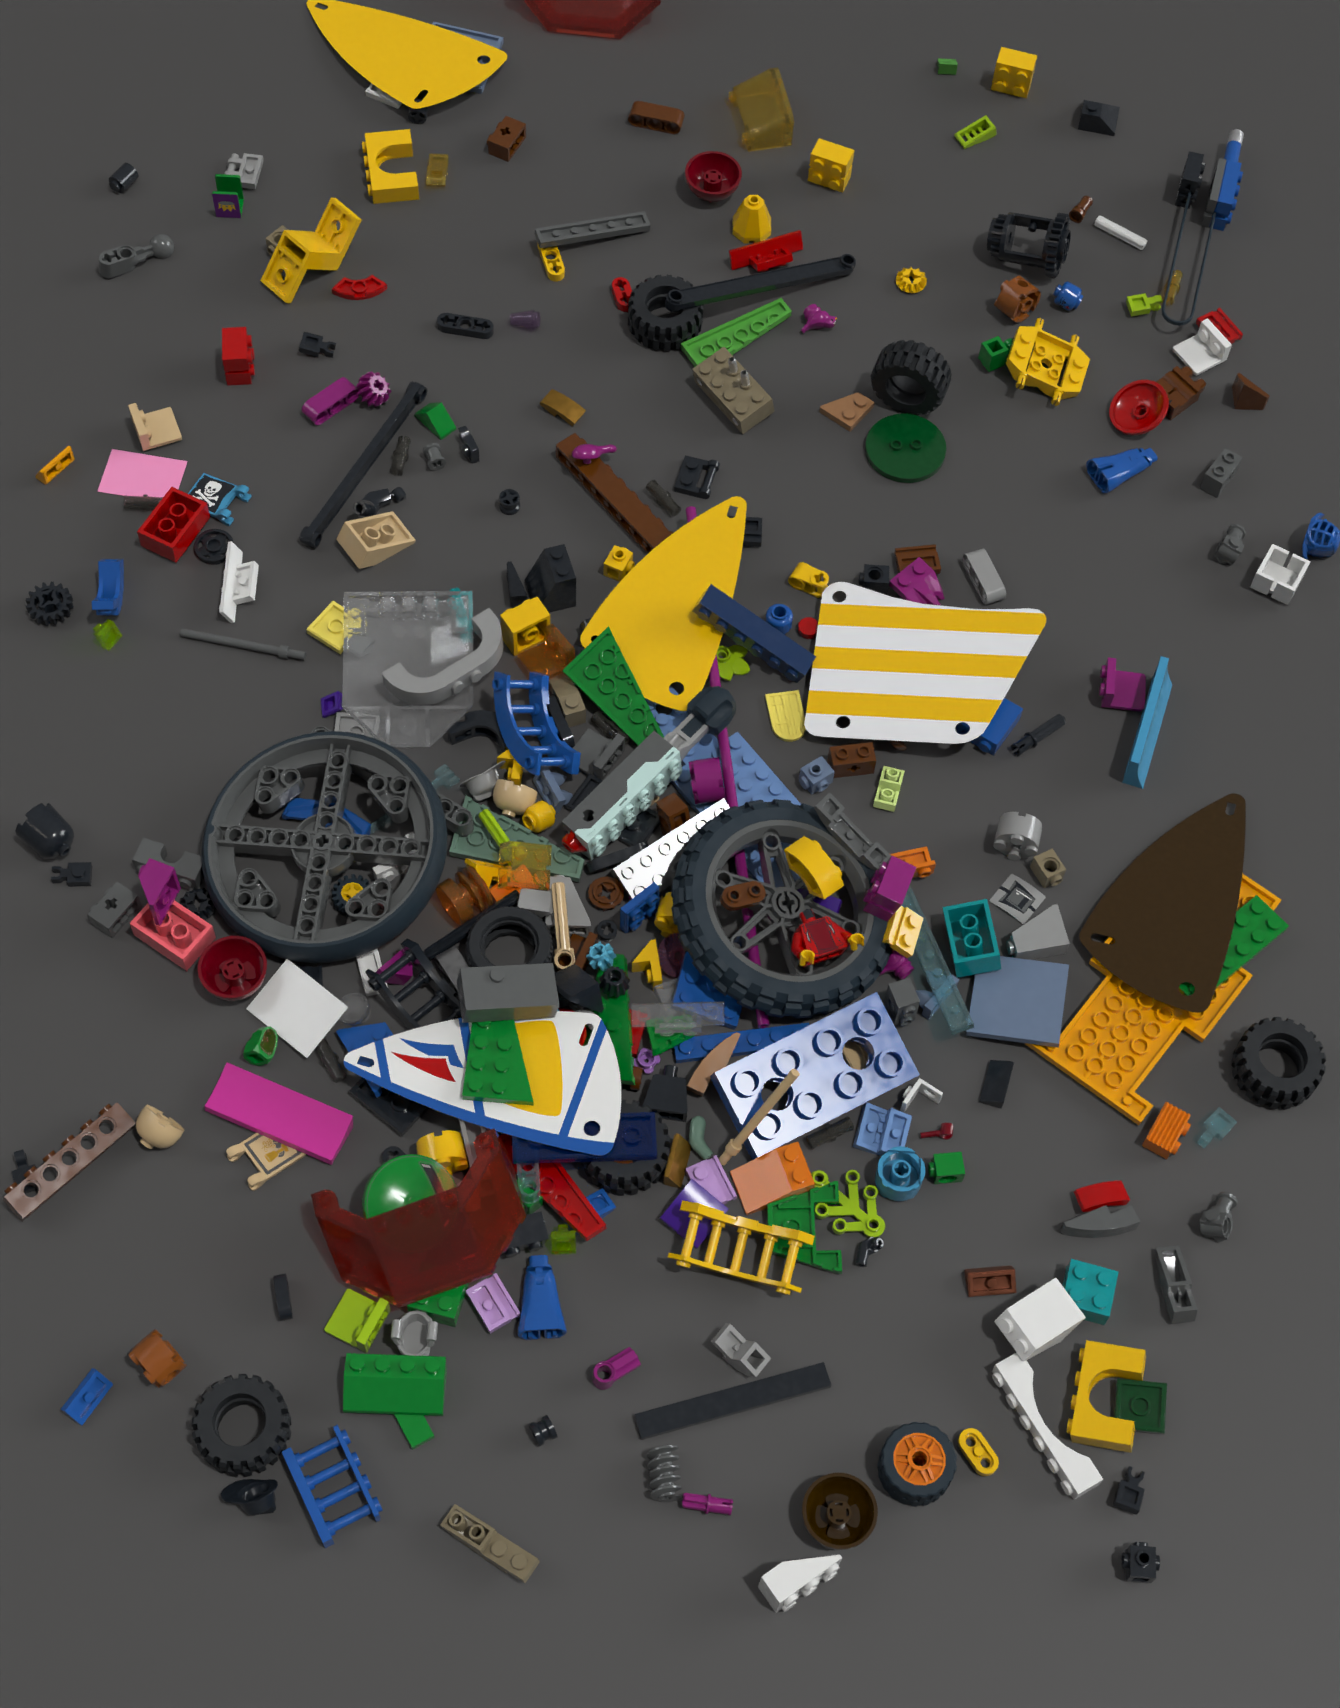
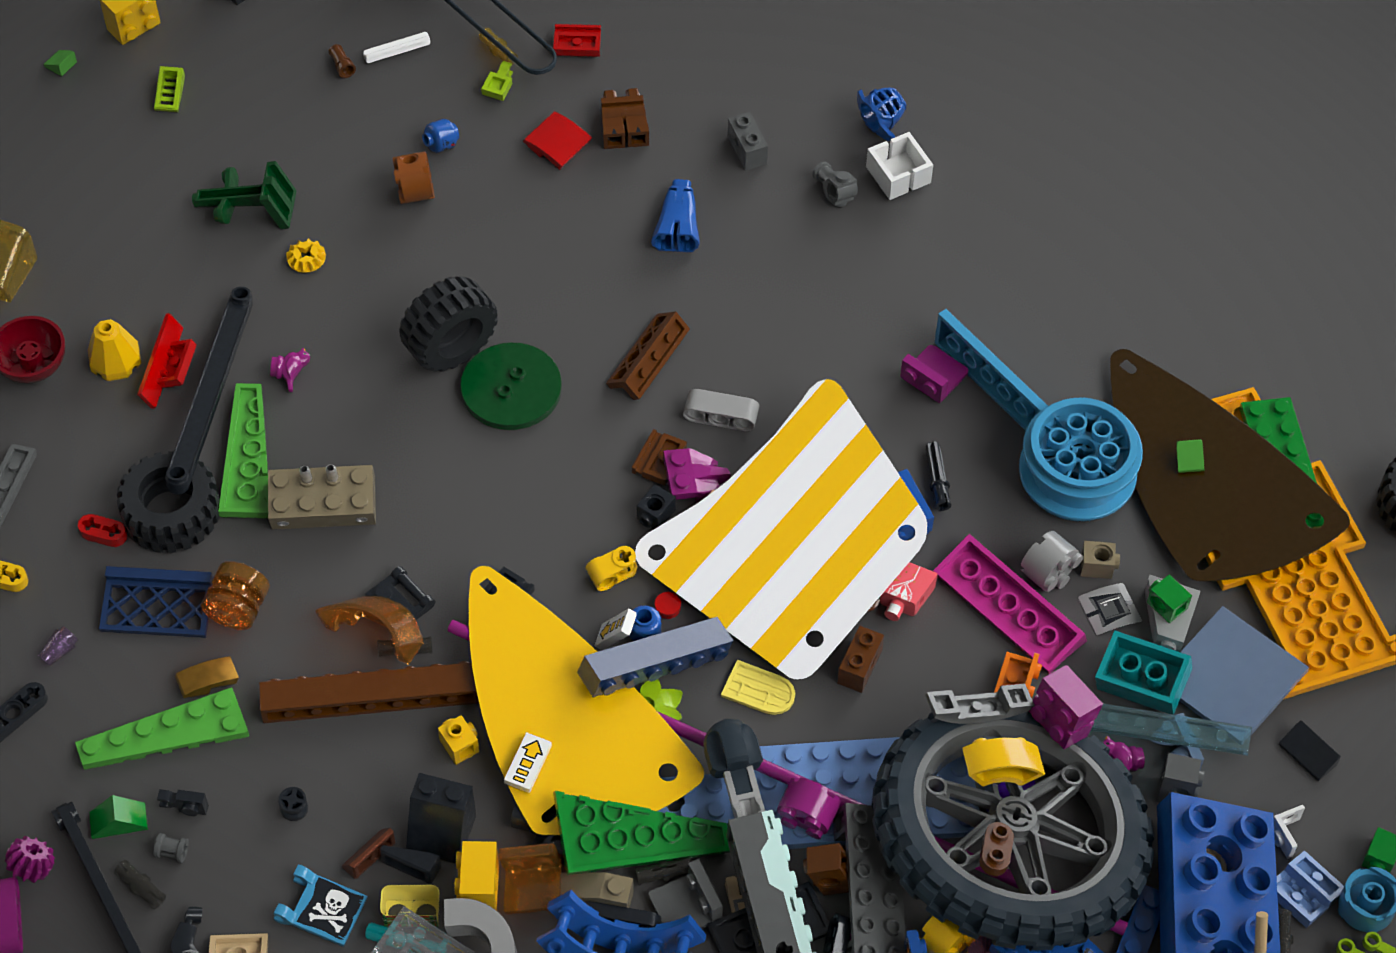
camera: 55 degrees left, 5 degrees down
(452, 560) = (323, 908): none -> flag
(482, 588) = (405, 895): none -> light yellow piece
(500, 561) = (368, 853): none -> copper slope
(527, 420) = (187, 725): none -> bright green wing
(591, 451) = (304, 680): magenta piece -> none
(609, 344) = (154, 580): none -> dark blue fence
(622, 604) = (527, 762): none -> white tile
(623, 385) = (235, 595): none -> clear orange wheel
(672, 474) = (380, 610): none -> clear orange windscreen
(759, 604) = (615, 629): none -> white tile
(816, 775) = (857, 703): sand blue brick -> none
(821, 939) = (1085, 807): torso -> none
(830, 165) = (107, 236): yellow piece -> none
(848, 410) = (424, 409): medium nougat wing -> none
(888, 788) = (911, 647): yellowish green slope -> none
(903, 931) = (1110, 733): yellow plate -> none
(928, 761) = (908, 591): none -> coral torso
(936, 232) = (275, 194): none -> dark green piece
(945, 1132) = (1337, 829): dark red hand -> none
(969, 831) = (1010, 604): none -> dark pink arch
(994, 353) = (463, 235): green brick -> none
(995, 512) = (649, 354): none -> reddish brown fence
(1042, 922) = (1168, 598): none -> green brick
(1052, 352) = (486, 200): yellow piece -> none
(1055, 245) = (379, 102): black piece -> none
(1121, 780) = (1085, 423): none -> dark azure wheel
(1124, 363) = (557, 139): none -> red slope
(1133, 401) = (614, 147): red dish -> none
(1179, 882) = (1190, 456): none -> bright green slope
(1204, 349) = (592, 65): white bracket -> none
(1248, 395) = (671, 65): reddish brown slope -> none

